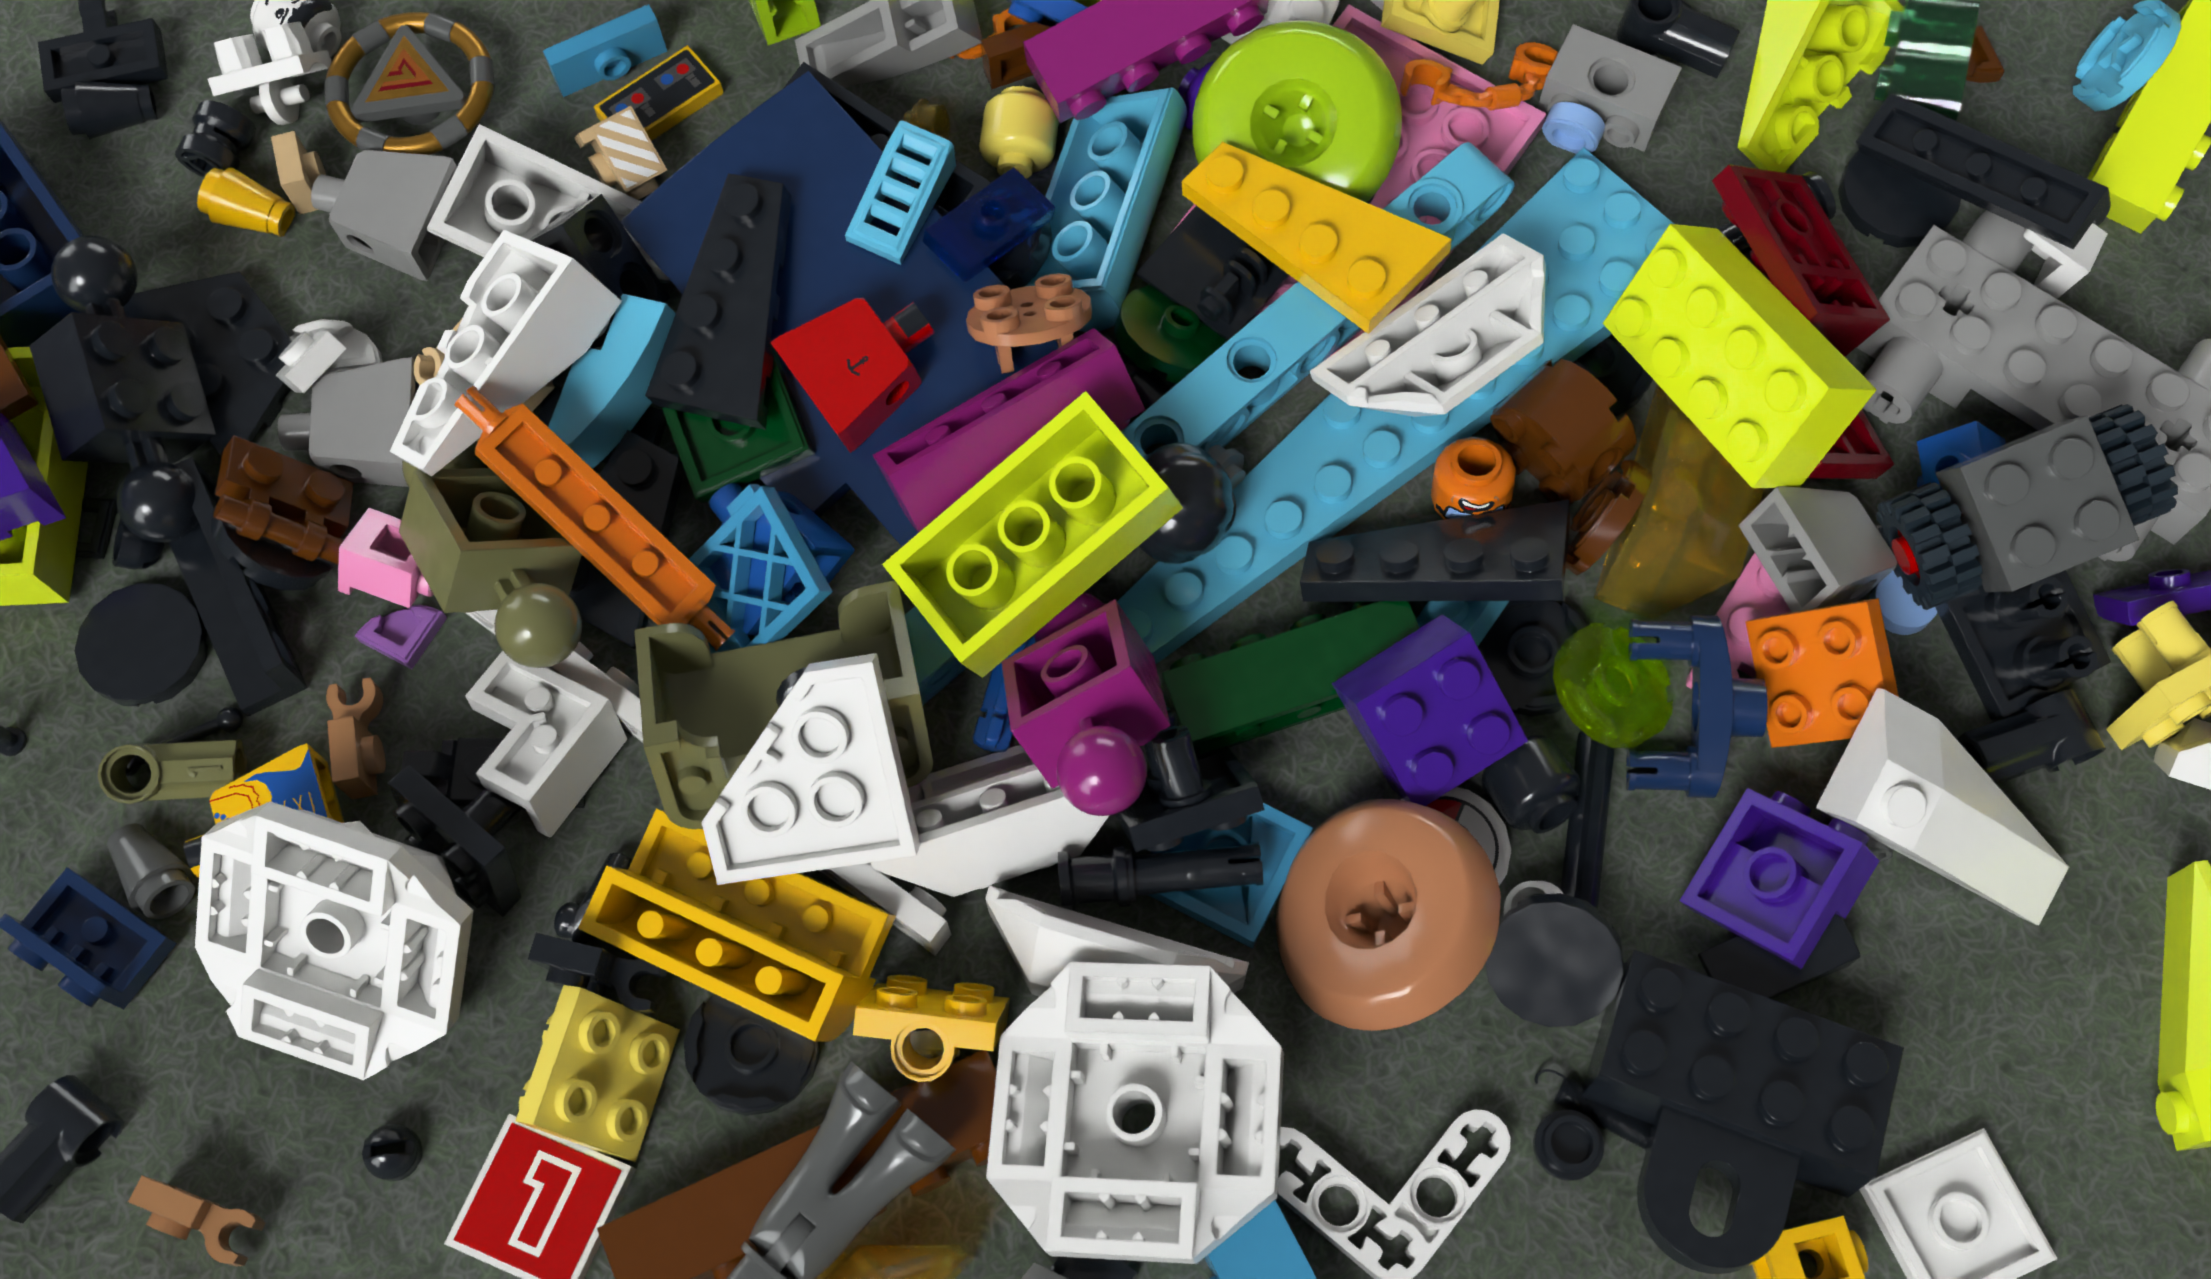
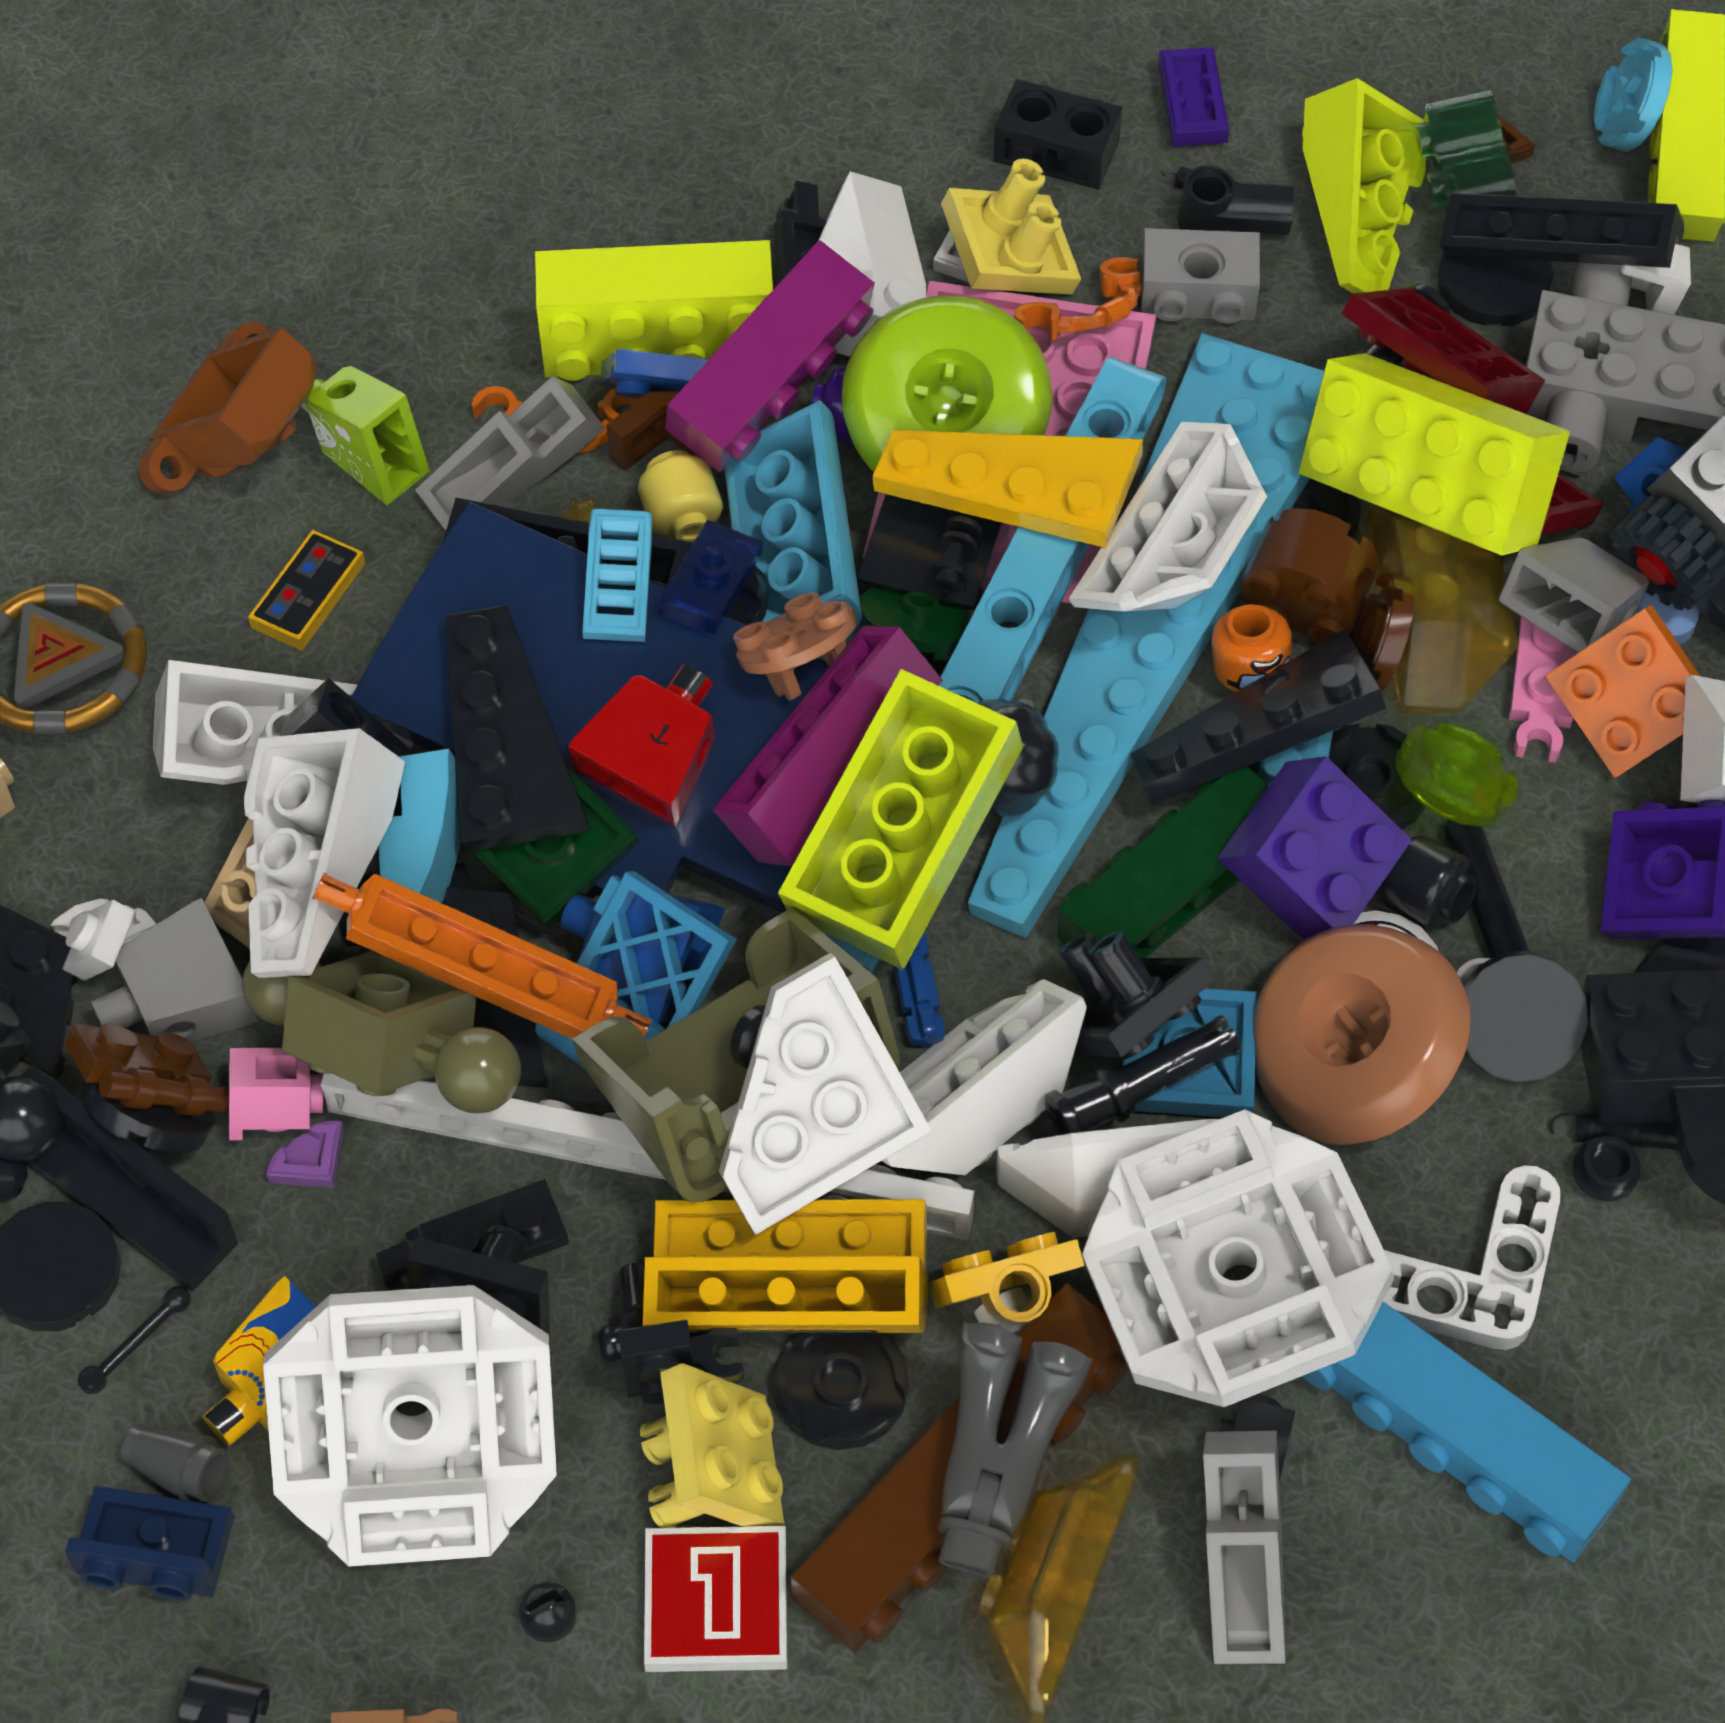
camera: 25 degrees left, 10 degrees down
(176, 769) = (162, 1356): olive piece -> none
(354, 751) = (323, 1271): medium nougat plate -> none
(387, 207) = (96, 777): light grey torso -> none
(556, 740) = (527, 1171): white panel -> none
(605, 51) = (236, 561): dark azure plate -> none
(623, 154) = (308, 643): tan brick -> none
(1087, 705) = (1021, 944): magenta brick -> none
(1573, 127) = (1185, 318): light blue tile -> none
(1720, 706) = (1555, 756): dark blue connector -> none

